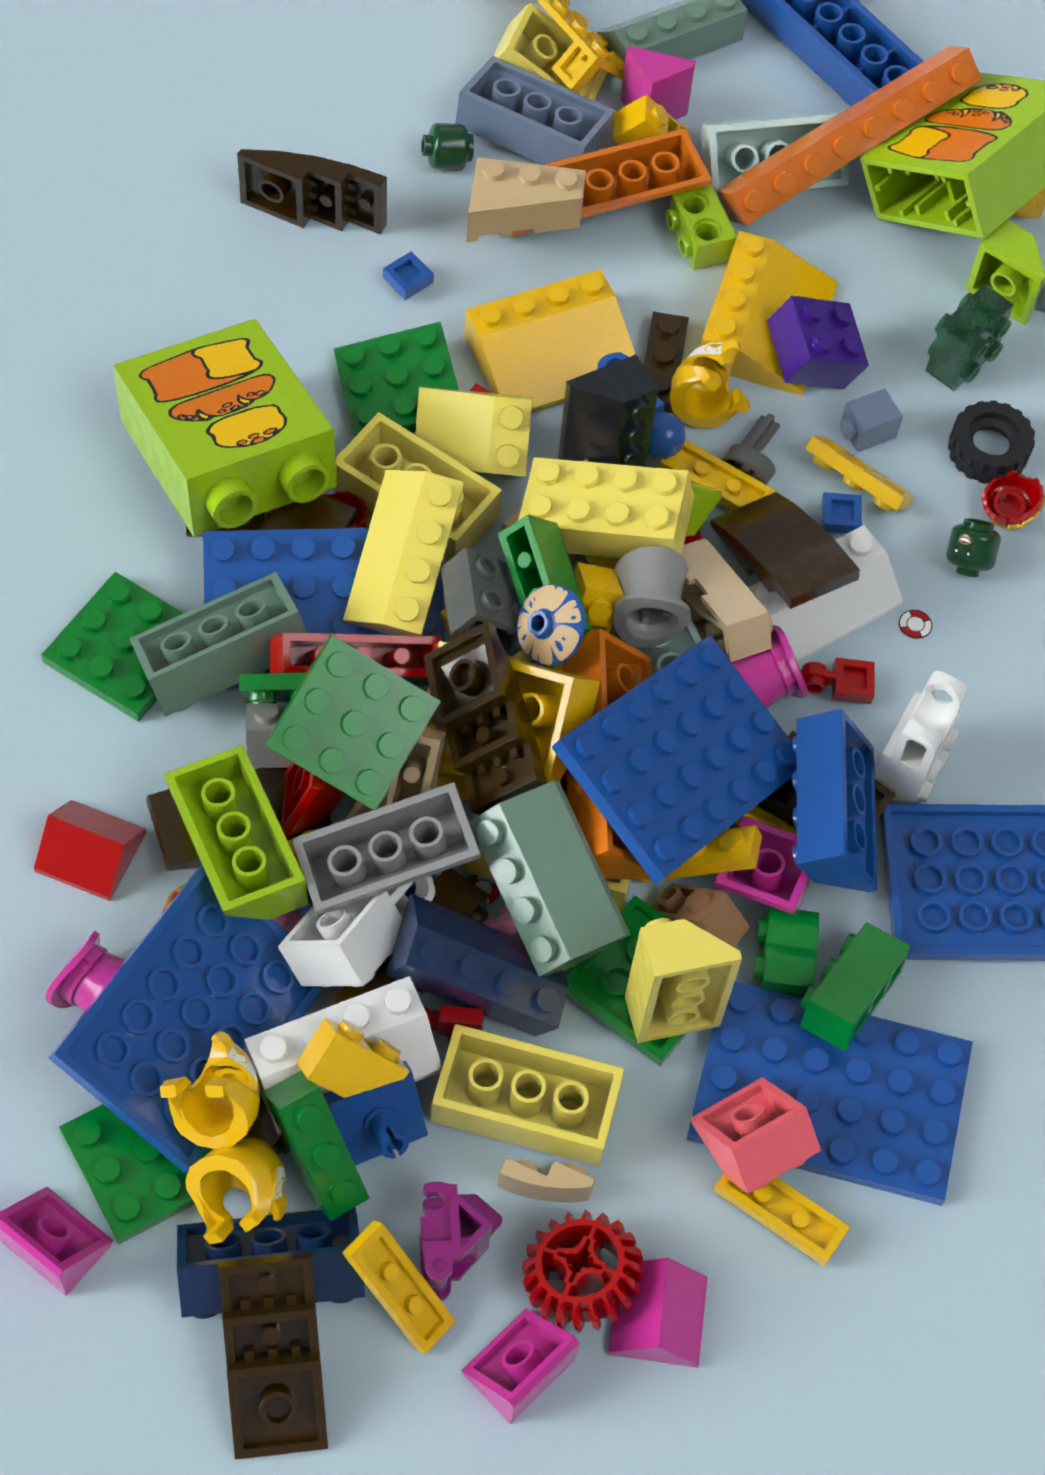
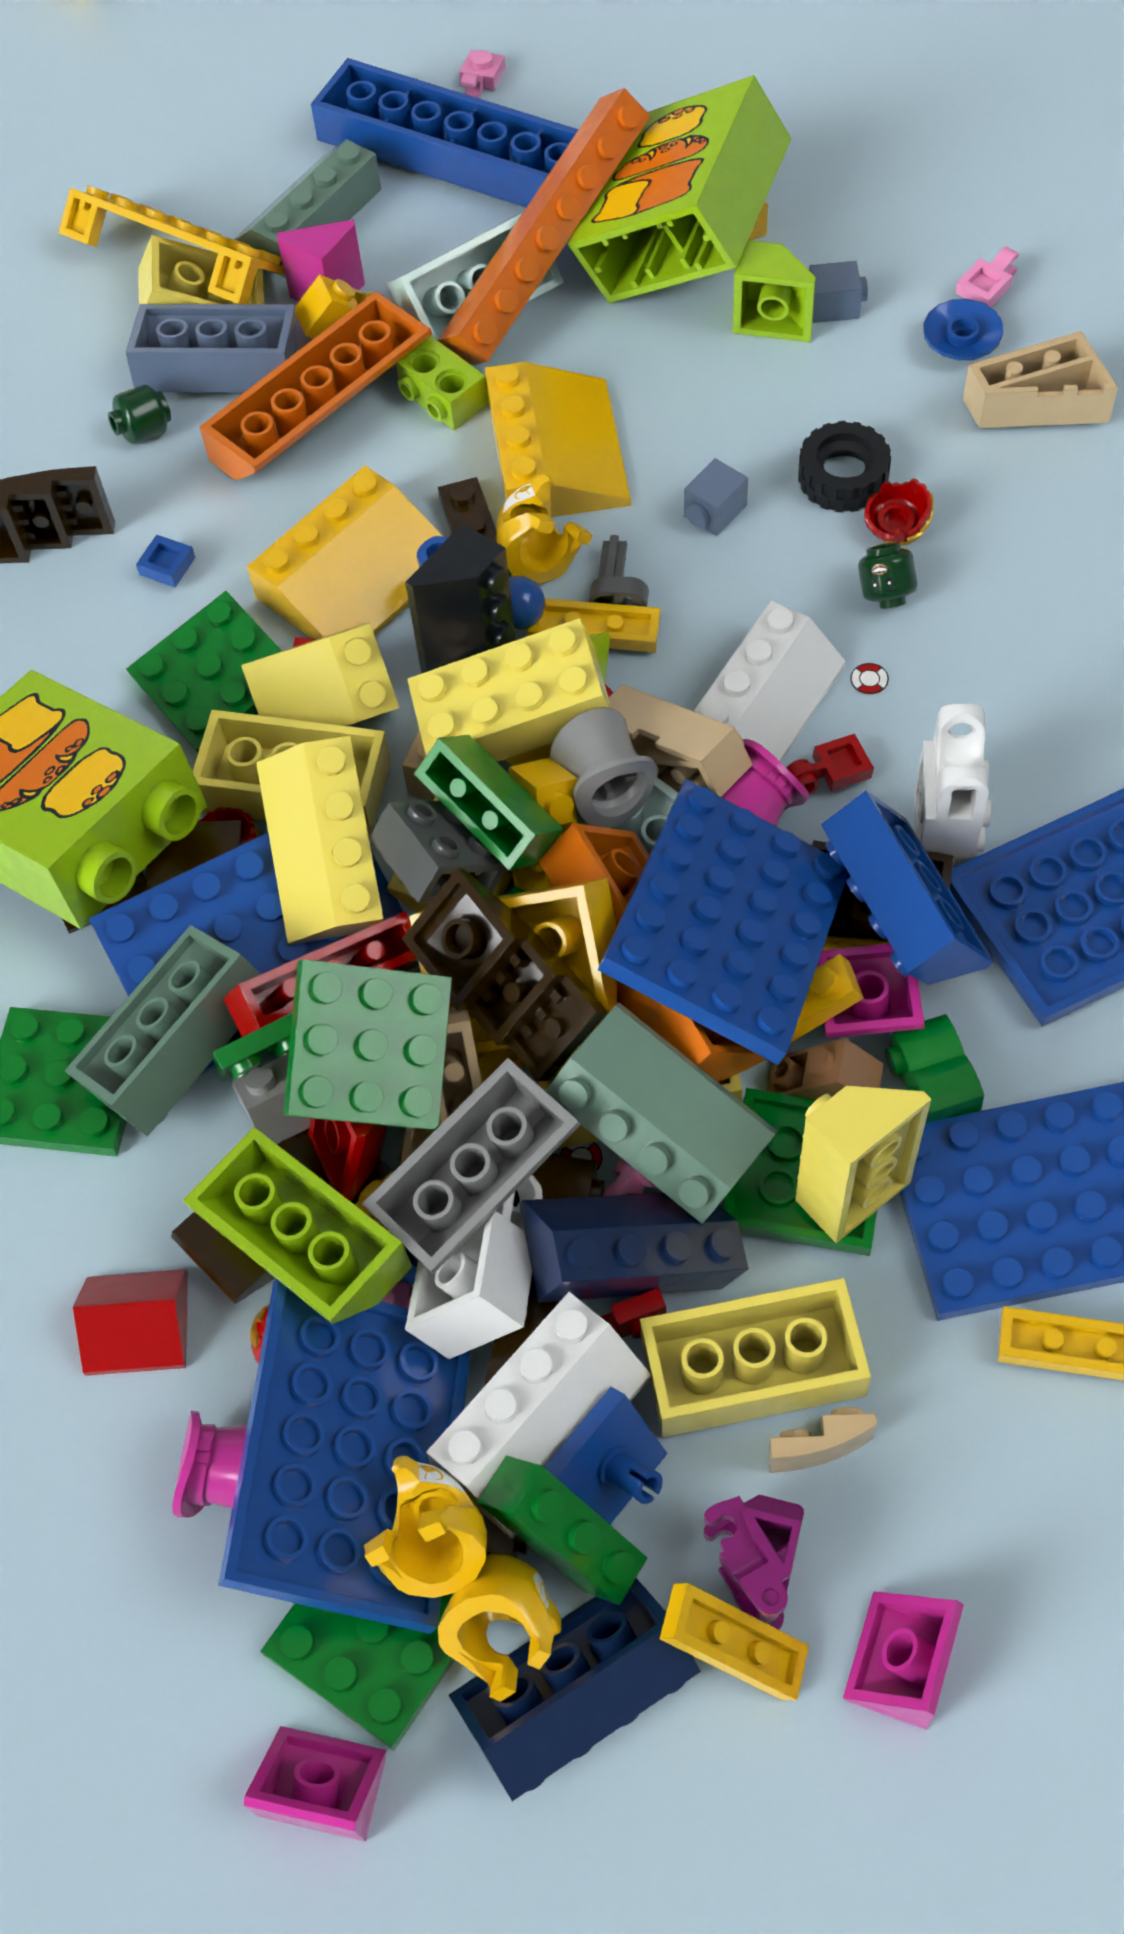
camera: 15 degrees left, 0 degrees up
(272, 1355) = (637, 1792): dark brown slope -> none
(348, 1062) = (553, 1420): yellow slope -> none
(523, 197) = (250, 425): tan wedge -> none
(562, 627) = (539, 838): tan dish -> none
(570, 1252) = (873, 1520): red gear -> none
(665, 1318) = (1014, 1524): dark pink slope -> none
(757, 1134) = (1016, 1278): coral slope -> none
(785, 549) = (708, 659): dark brown slope -> none
(817, 342) = (623, 442): dark purple brick -> none
(841, 512) = (736, 601): blue plate -> none
(853, 985) = (1023, 1073): green brick -> none
(858, 474) = (732, 555): yellow plate -> none
(969, 337) = (769, 372): clear green brick -> none

